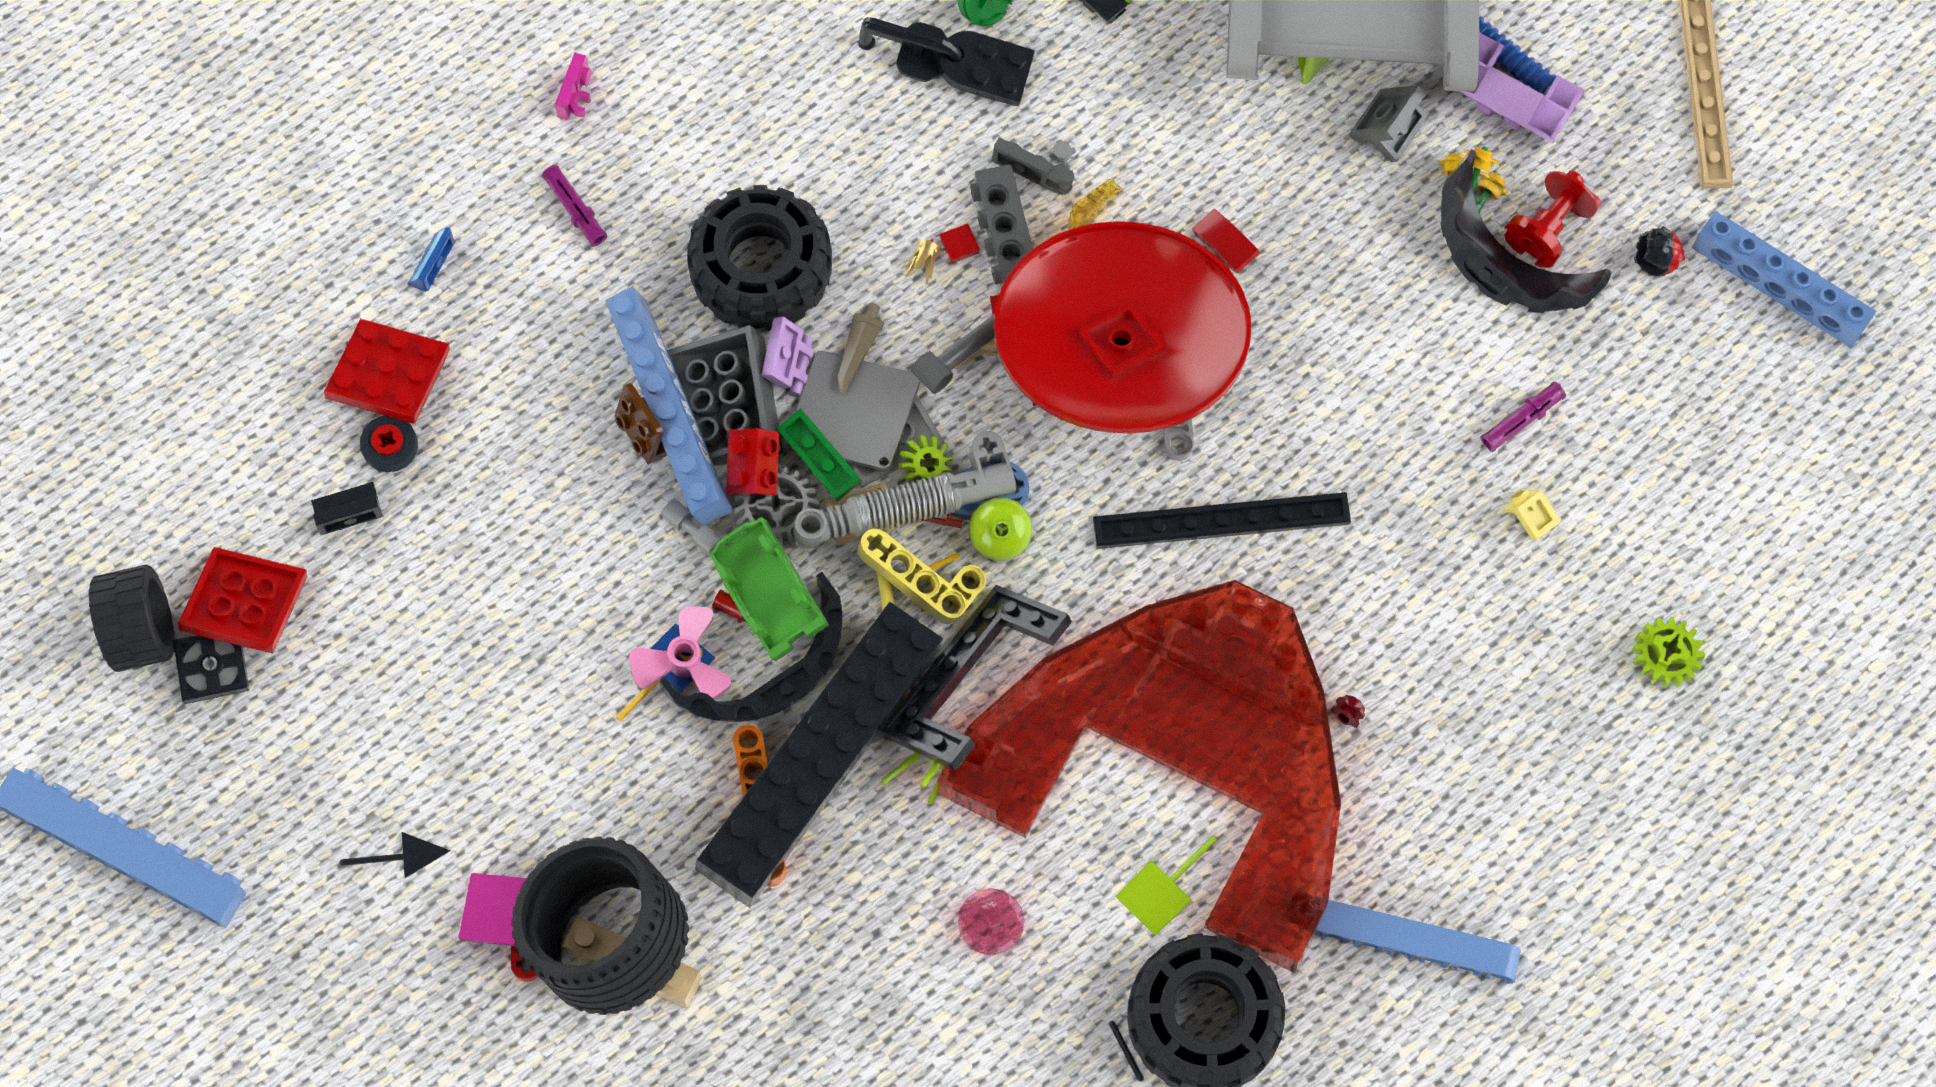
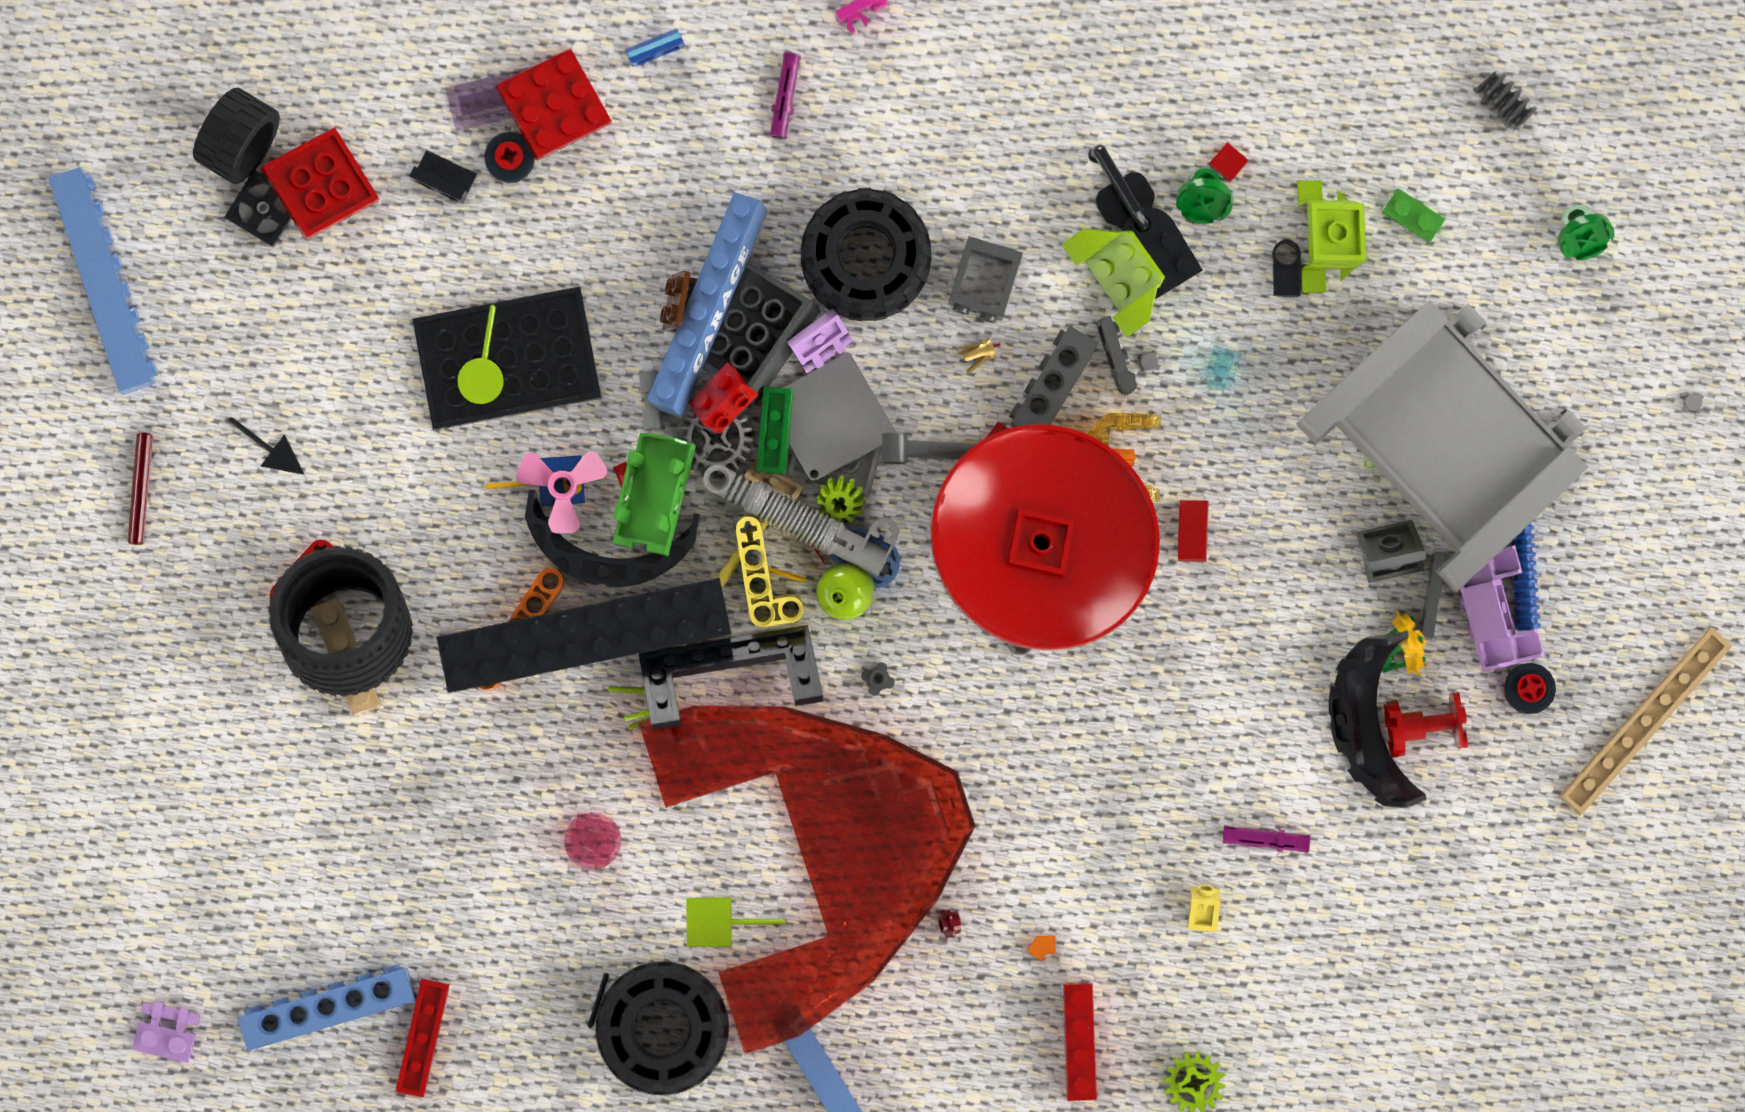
camera: 45 degrees right, 15 degrees up
(314, 992) = (140, 488): none -> dark red axle
(322, 426) = (478, 102): none -> clear purple piece
(489, 909) = (293, 538): dark pink tile -> none
(531, 632) = (480, 378): none -> lime piece
(537, 601) = (534, 341): none -> black plate
(861, 337) = (885, 370): dark tan bar -> none
(872, 200) = (983, 282): none -> window
(959, 243) = (1015, 363): red tile -> none
(974, 100) = (1122, 270): none -> lime piece
(1098, 583) = (874, 686): none -> dark grey plate
(1123, 104) = (1221, 368): none -> clear light blue brick
(1221, 520) = (997, 720): black tile -> none
(1440, 660) = (1041, 946): none -> orange piece
(1450, 120) = (1432, 597): none -> dark grey tile
(1548, 704) = (1079, 1042): none -> red brick
(1601, 117) = (1539, 684): none -> black wheel
(1659, 252) = (1476, 815): black piece -> none
(1783, 279) = (1539, 913): medium blue brick -> none

